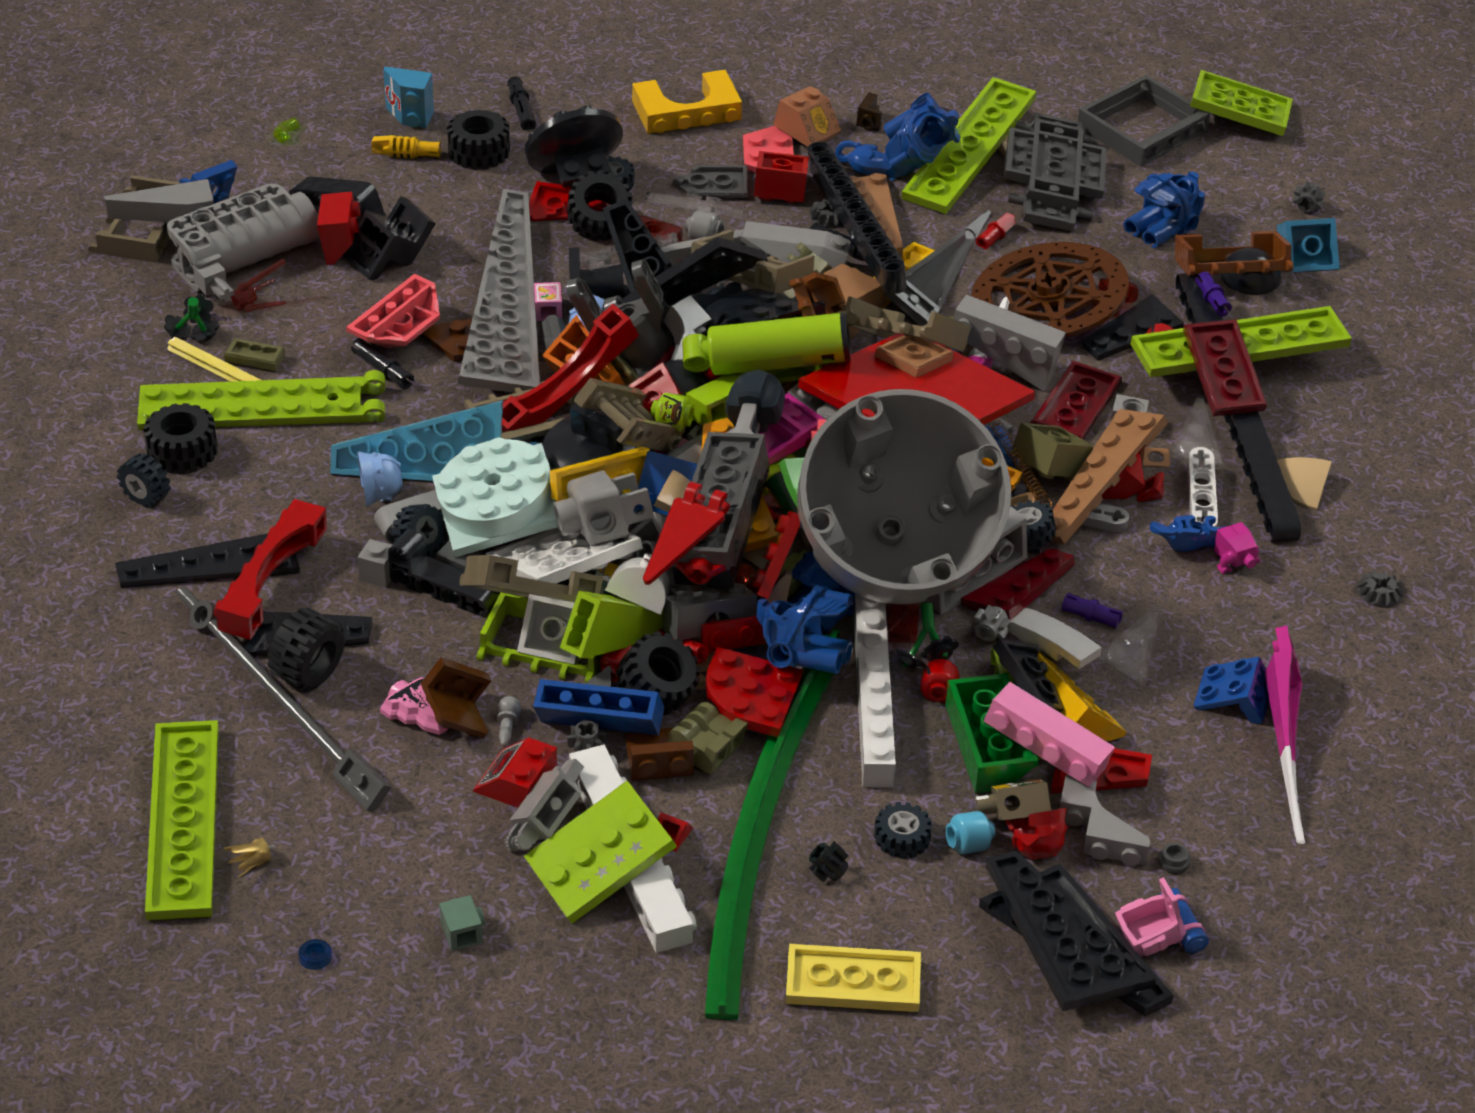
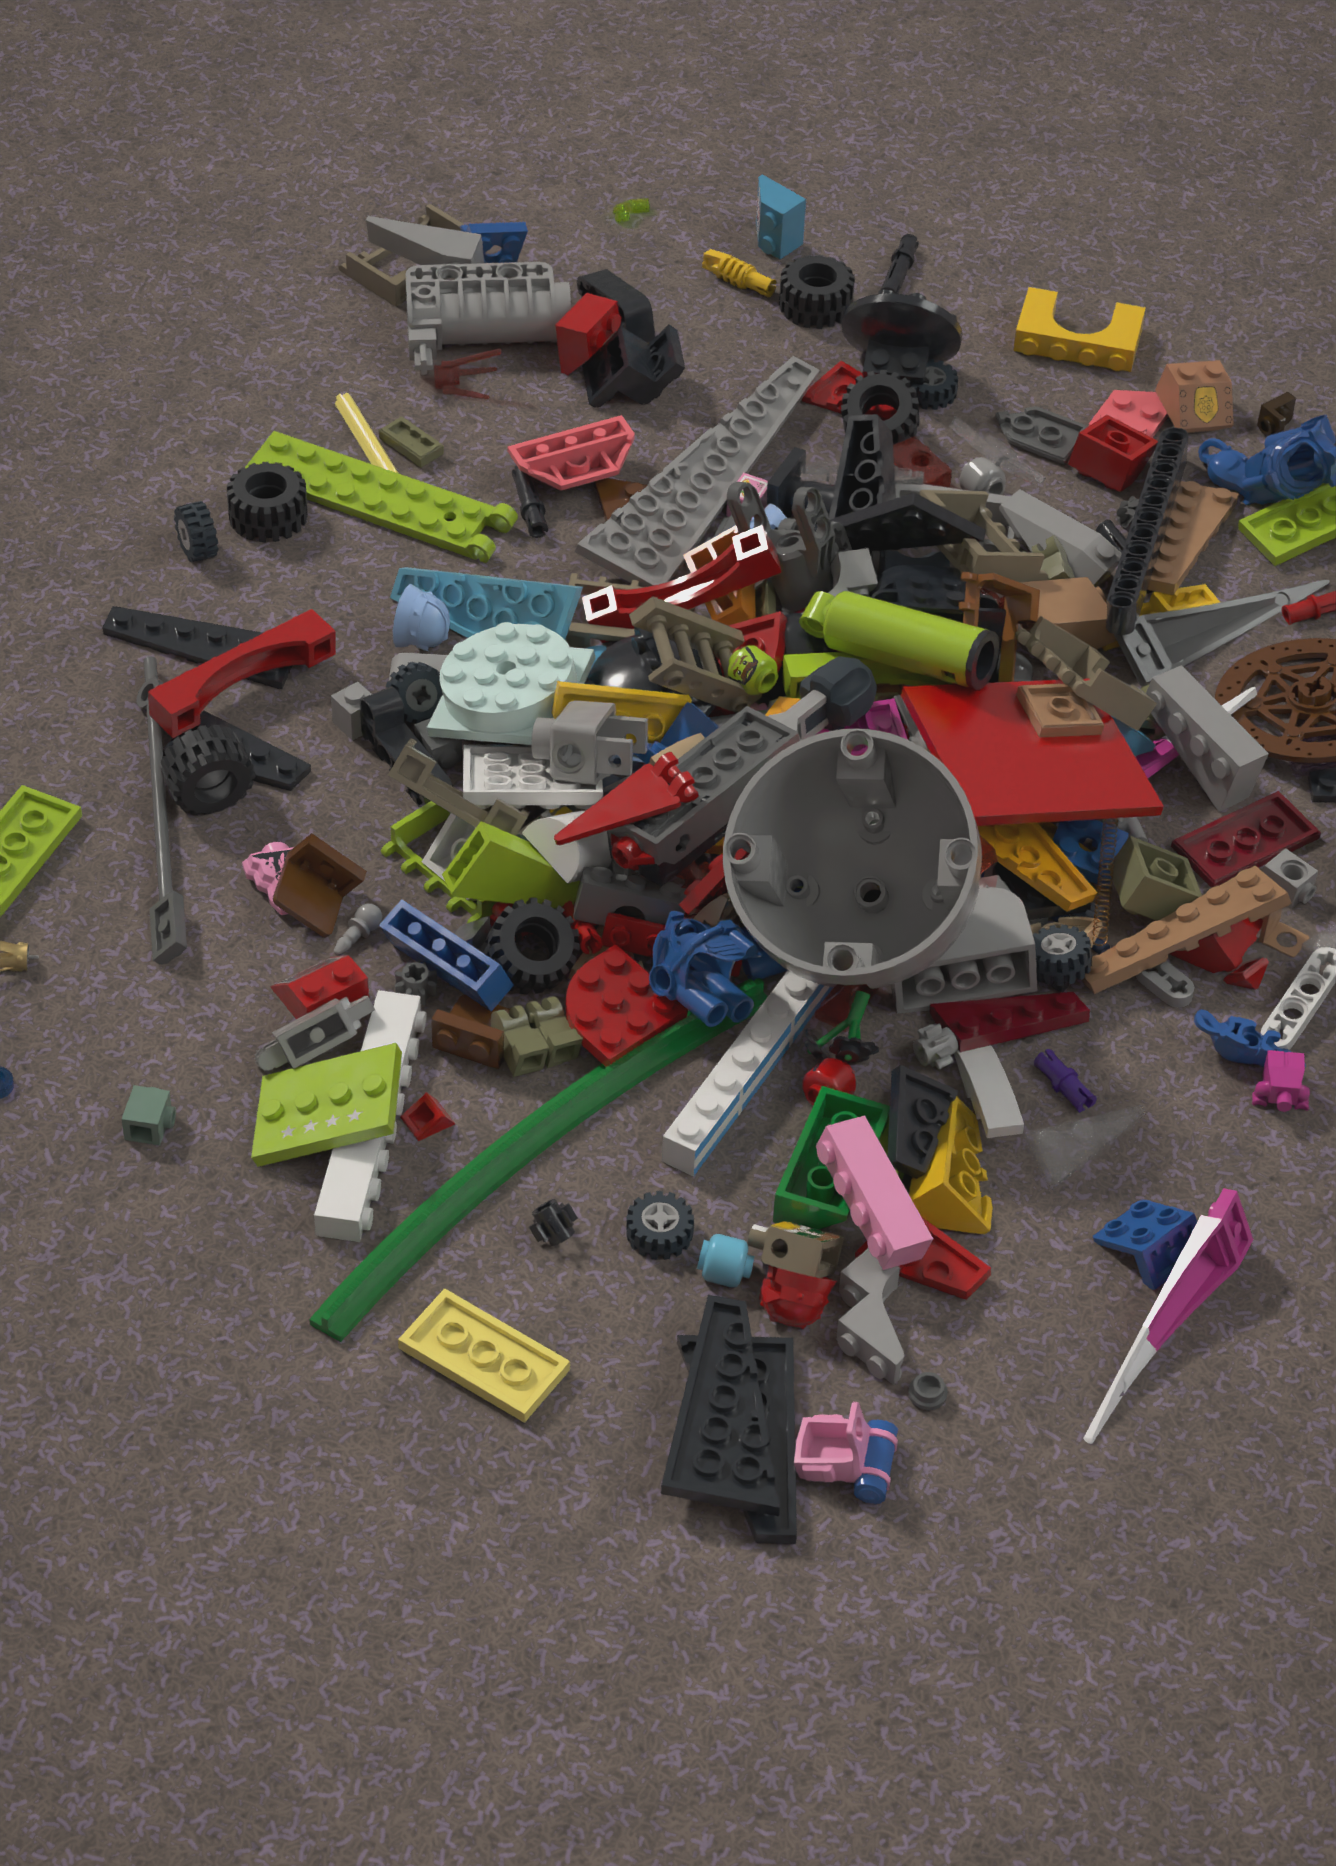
camera: 30 degrees right, 5 degrees up
(196, 311) = (388, 374): black plant -> none

